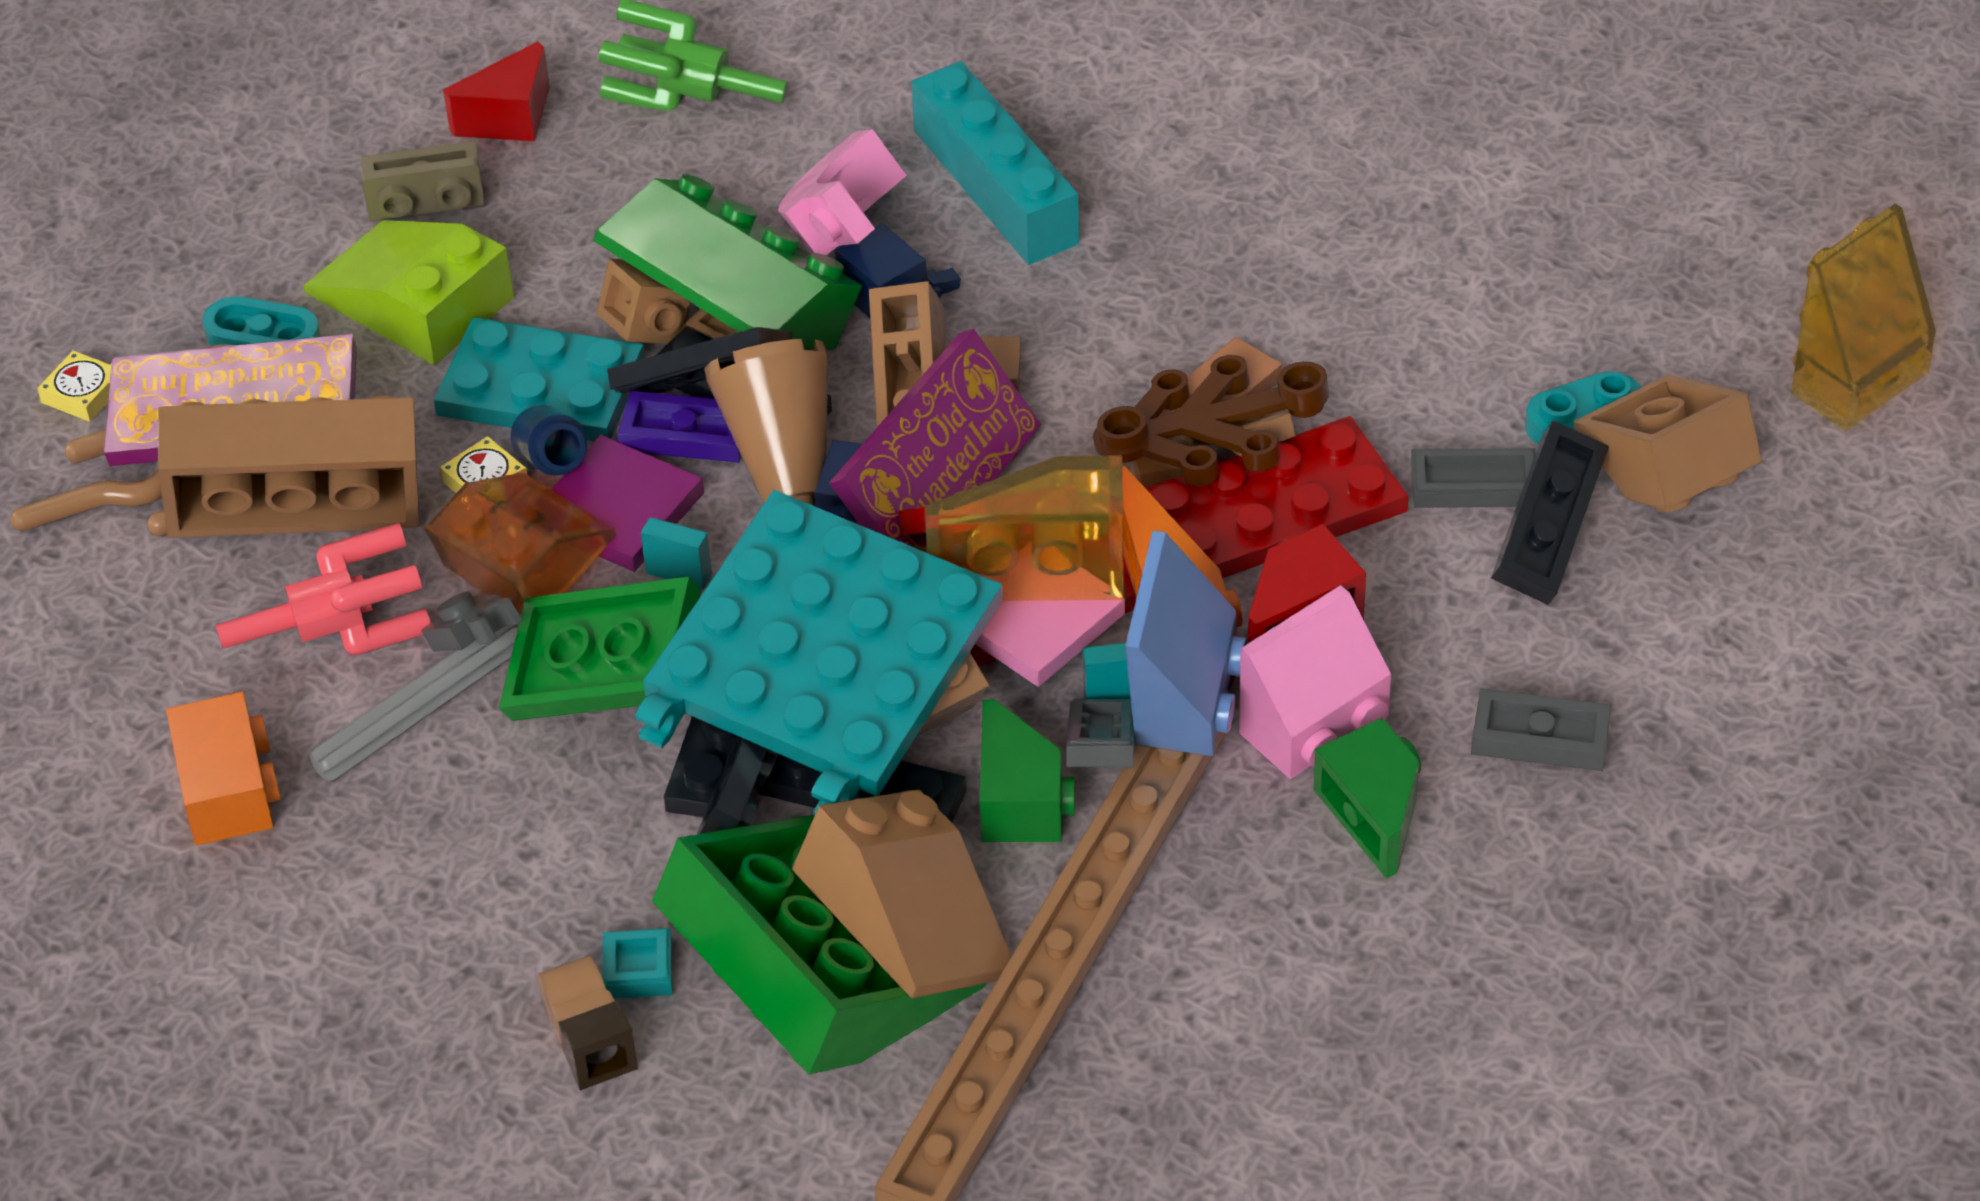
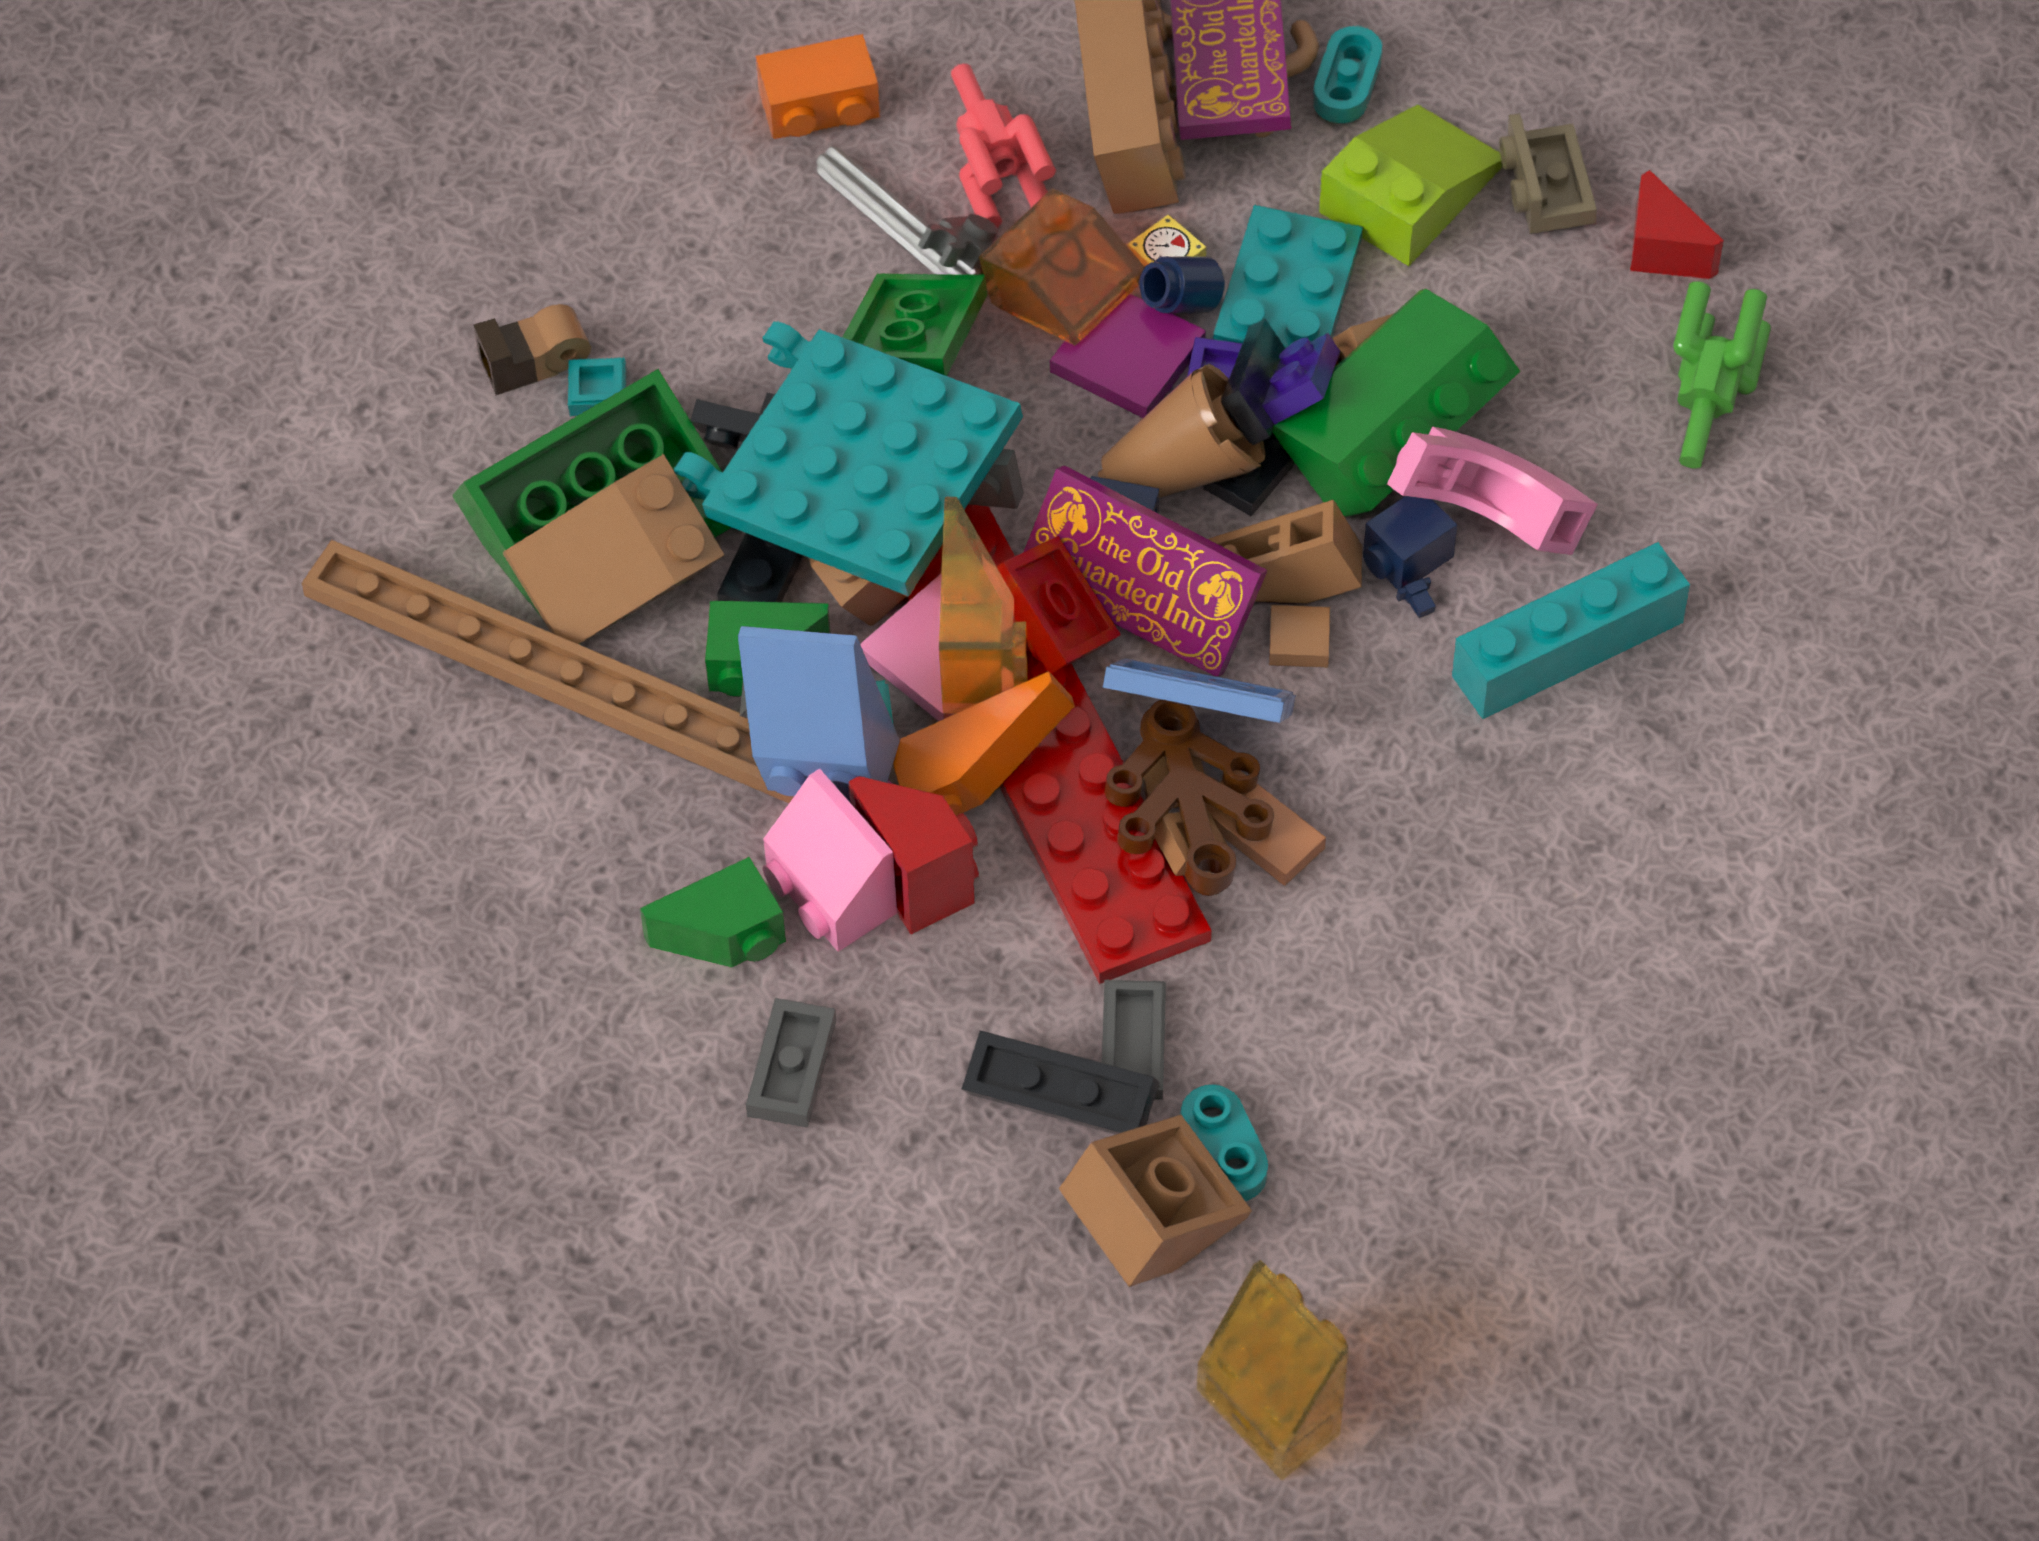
camera: 90 degrees right, 10 degrees up
(676, 551) = (1047, 389): teal tile -> none
(704, 315) = (1301, 377): none -> dark purple plate
(1091, 392) = (1199, 690): none -> medium blue tile

